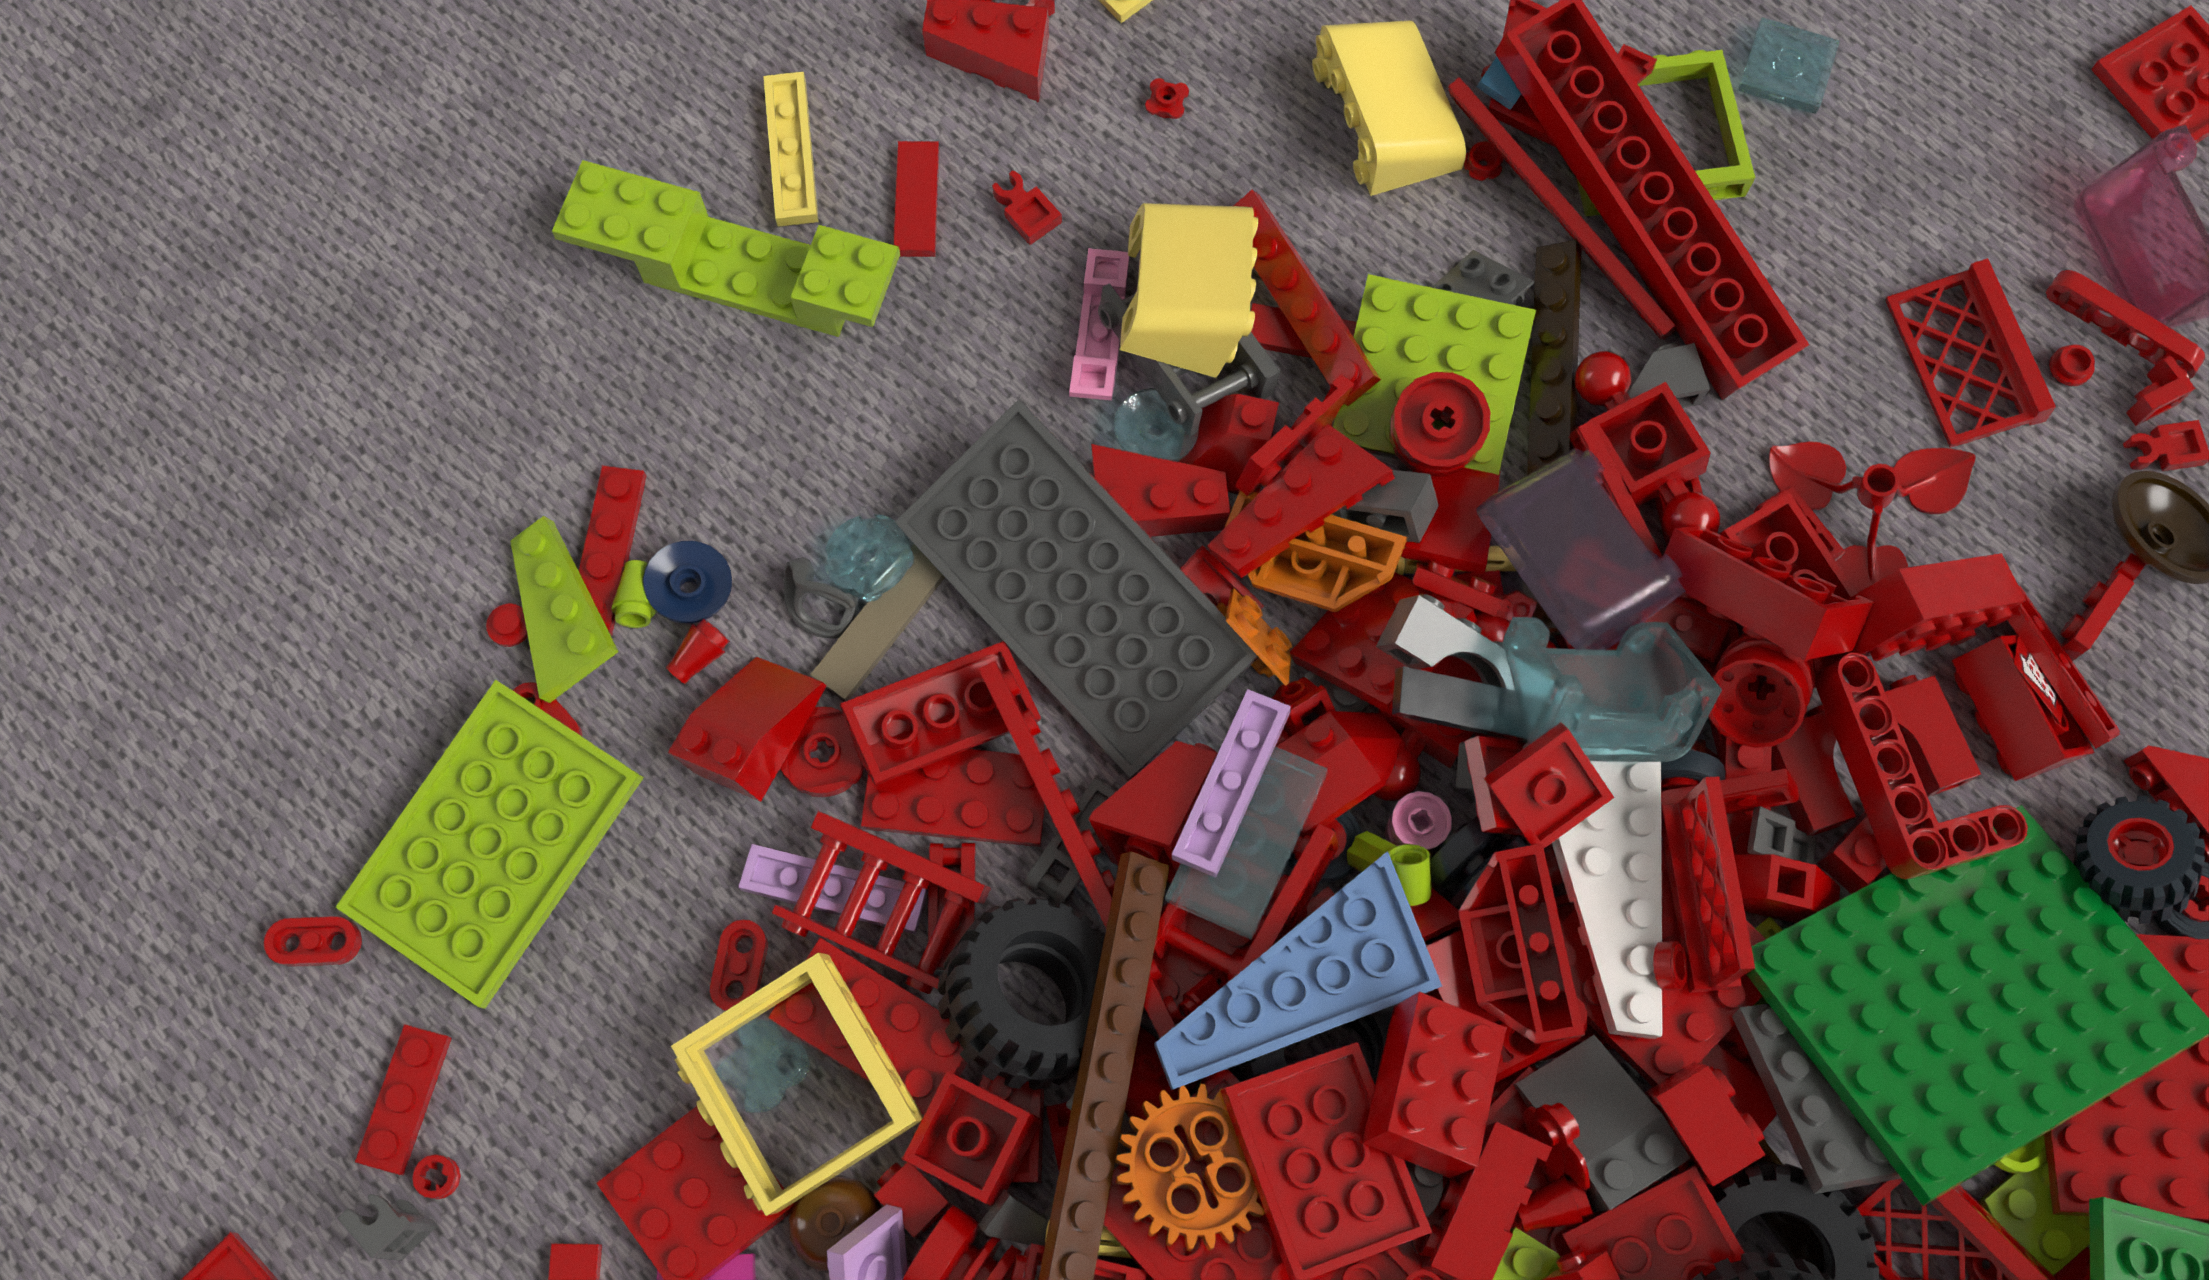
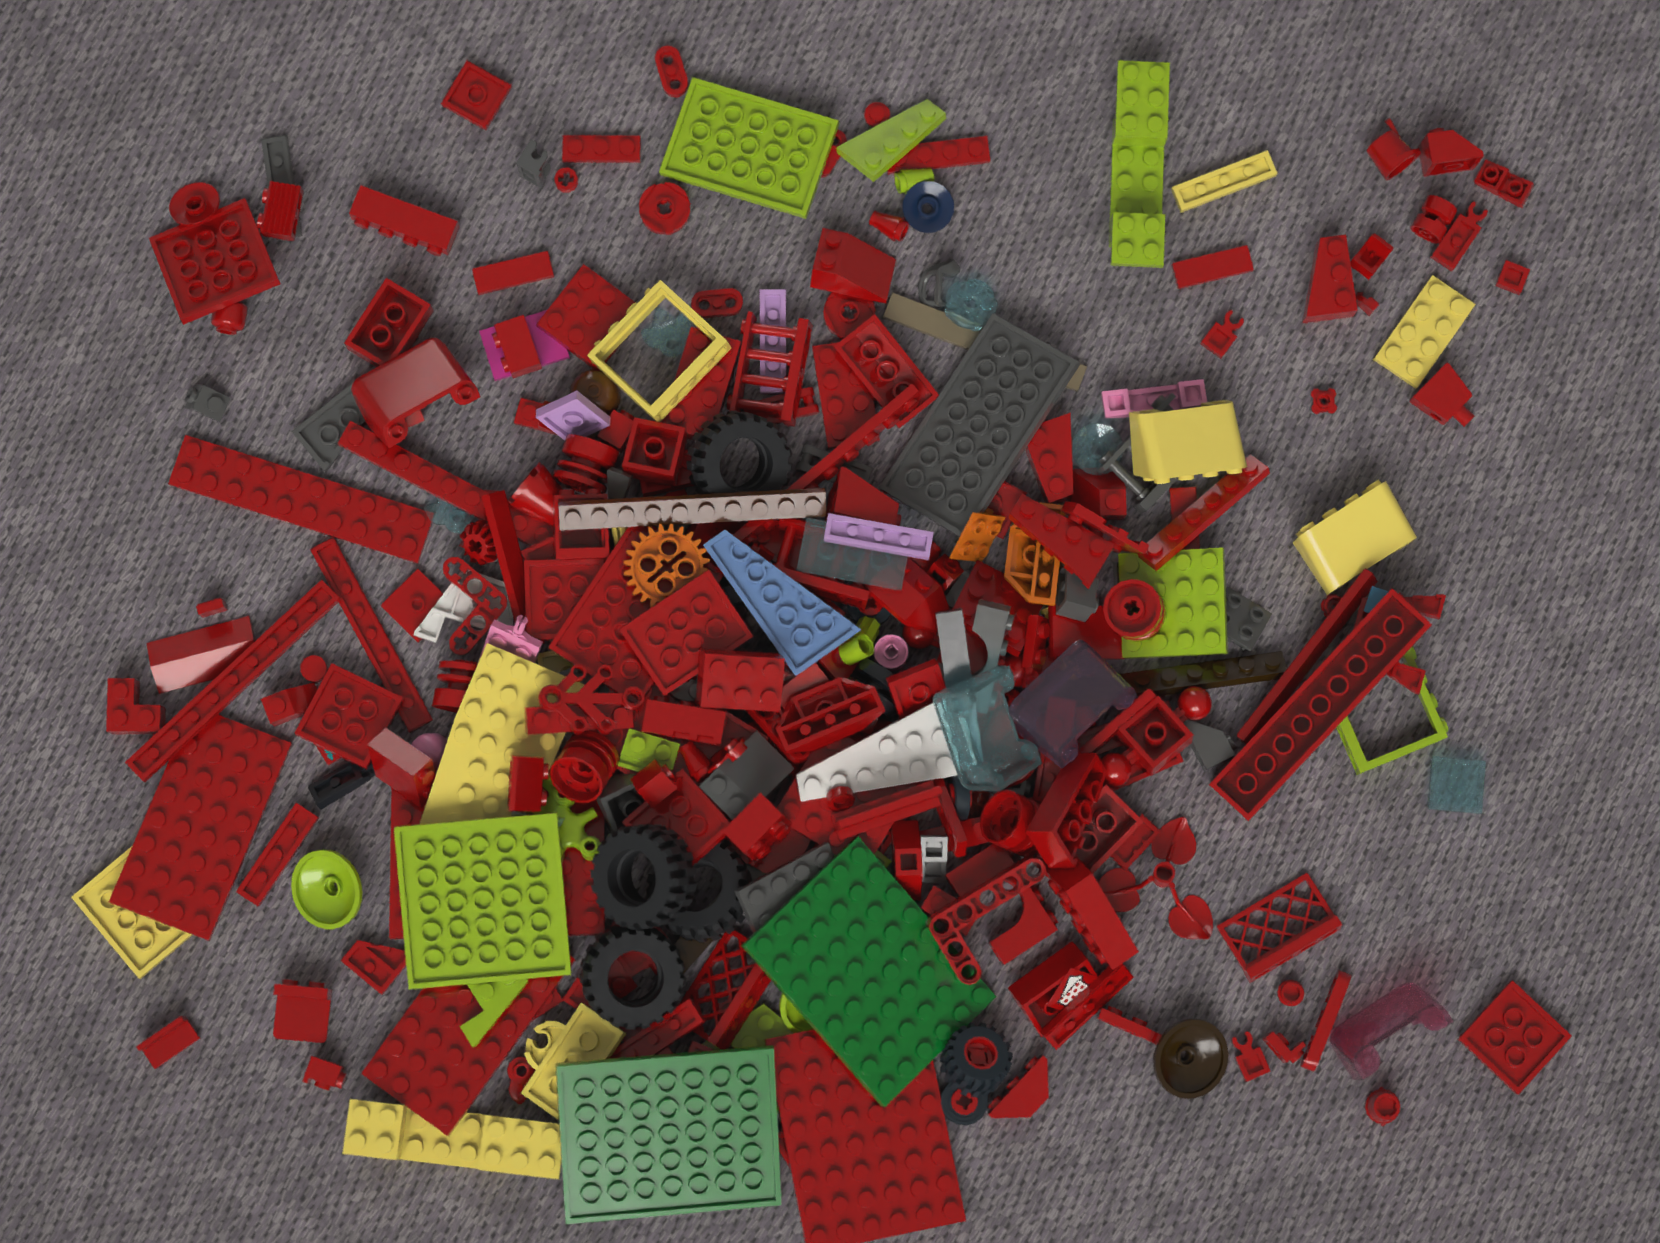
camera: 70 degrees right, 10 degrees up
(519, 1012) = (663, 194): none -> red plate
(1549, 787) = (916, 706): red plate -> none

